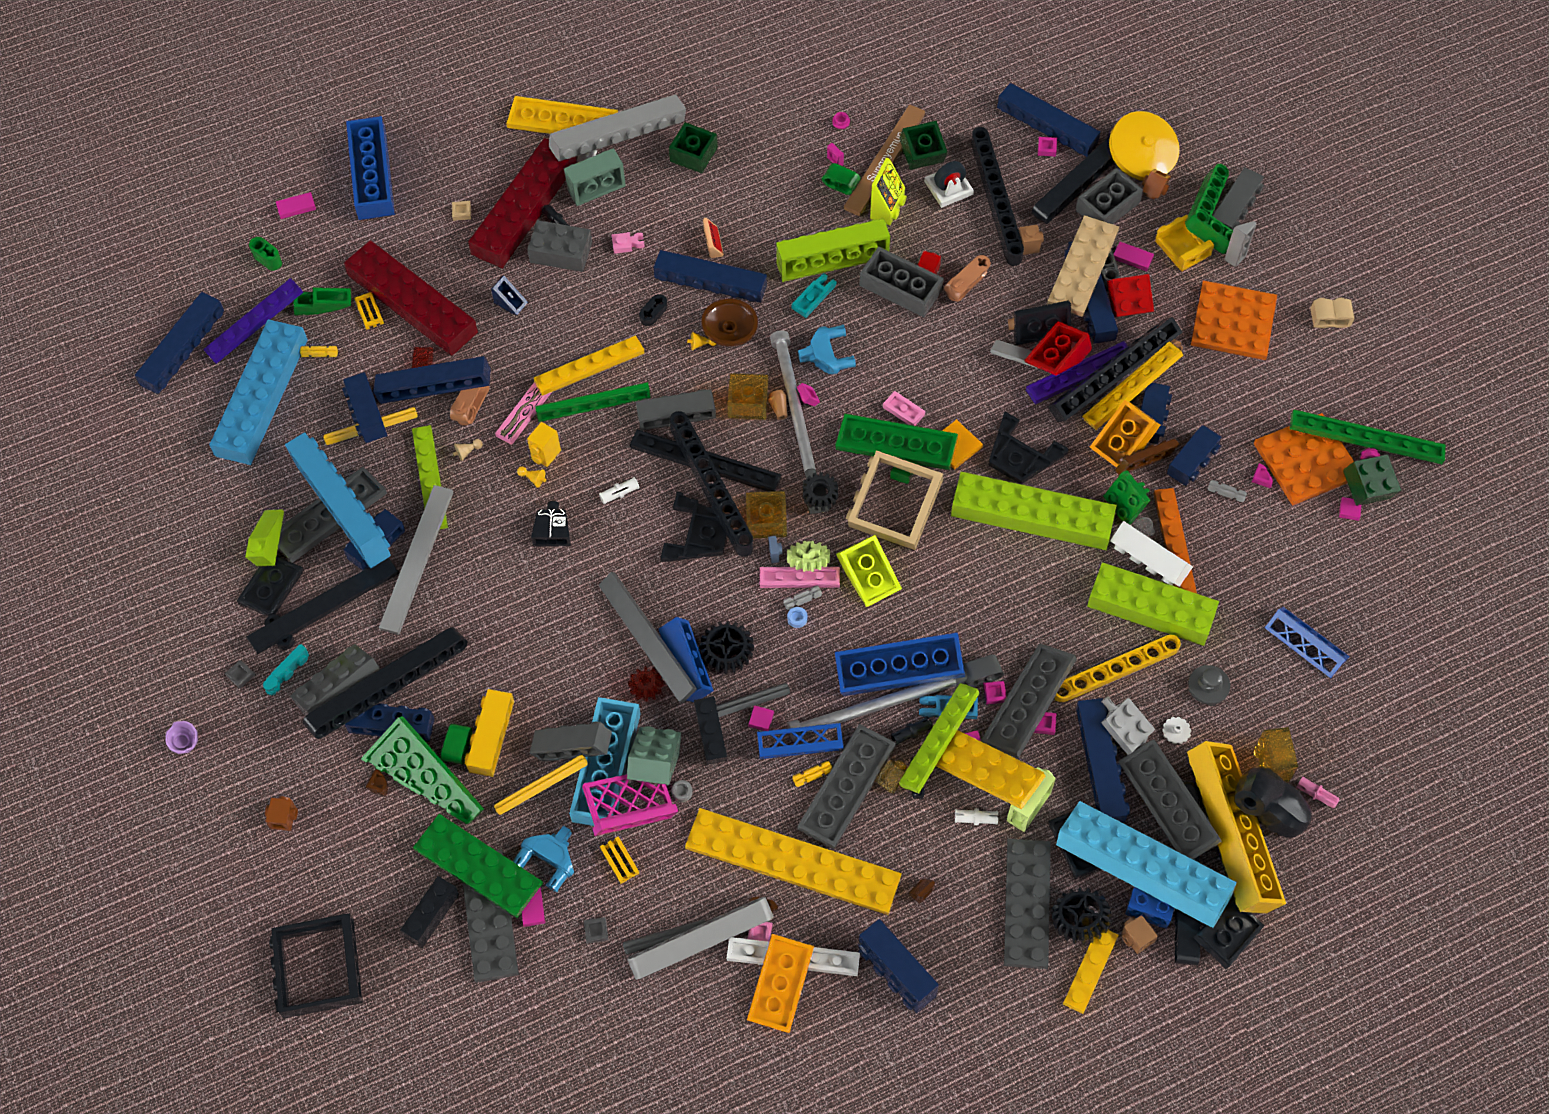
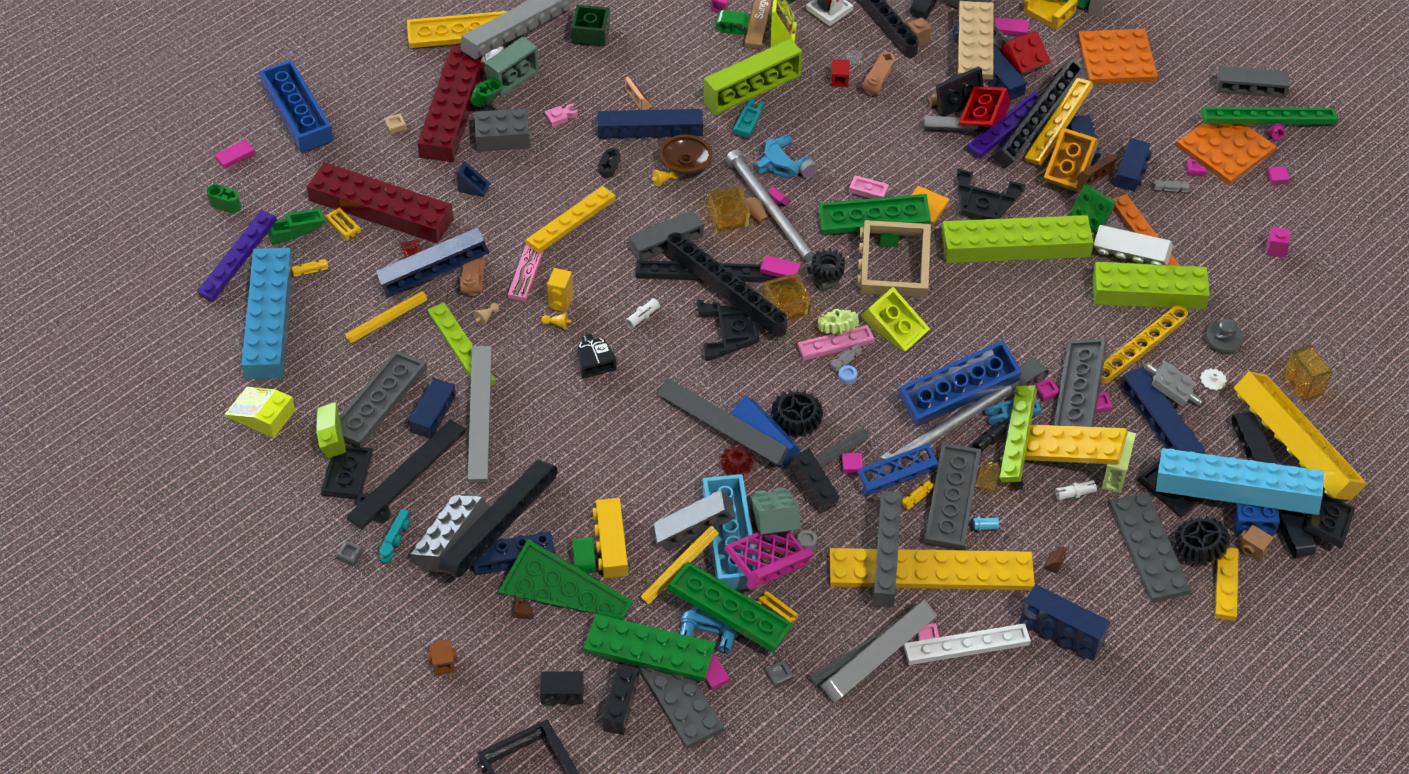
camera: 20 degrees left, 10 degrees down
(179, 343) = (171, 291): dark blue brick -> none
(181, 737) = (318, 618): lavender hair -> none
(215, 496) = (262, 410): none -> neon yellow slope
(339, 499) = (390, 377): dark azure brick -> none
(364, 407) = (377, 300): dark blue brick -> none
(379, 882) = (561, 687): none -> black brick
(557, 199) = (486, 92): none -> green beam
(569, 847) = (730, 607): none -> green plate
(593, 402) = (587, 247): green tile -> none
(750, 829) = (887, 549): none -> dark grey brick
(774, 477) = (779, 267): none -> dark pink tile
(775, 549) = (804, 325): sand blue plate -> none
(780, 983) = (966, 667): light orange tile -> none
(850, 370) = (808, 168): none -> light grey tile
(867, 827) = (985, 523): none -> medium azure pin
(901, 282) = (823, 88): dark grey brick -> none
(953, 249) = (854, 57): none -> clear plate
(1169, 801) = (1235, 428): dark grey plate -> none
(1273, 801) = (1322, 407): black piece -> none
(1310, 635) = (1292, 277): fence -> none
(1313, 590) = (1278, 242): none -> dark pink brick
(1318, 792) = (1352, 395): bright pink axle -> none
(1332, 313) = (1196, 31): tan brick -> none
(1368, 389) = (1252, 81): none -> dark grey brick
(1372, 480) = (1288, 146): dark green brick -> none

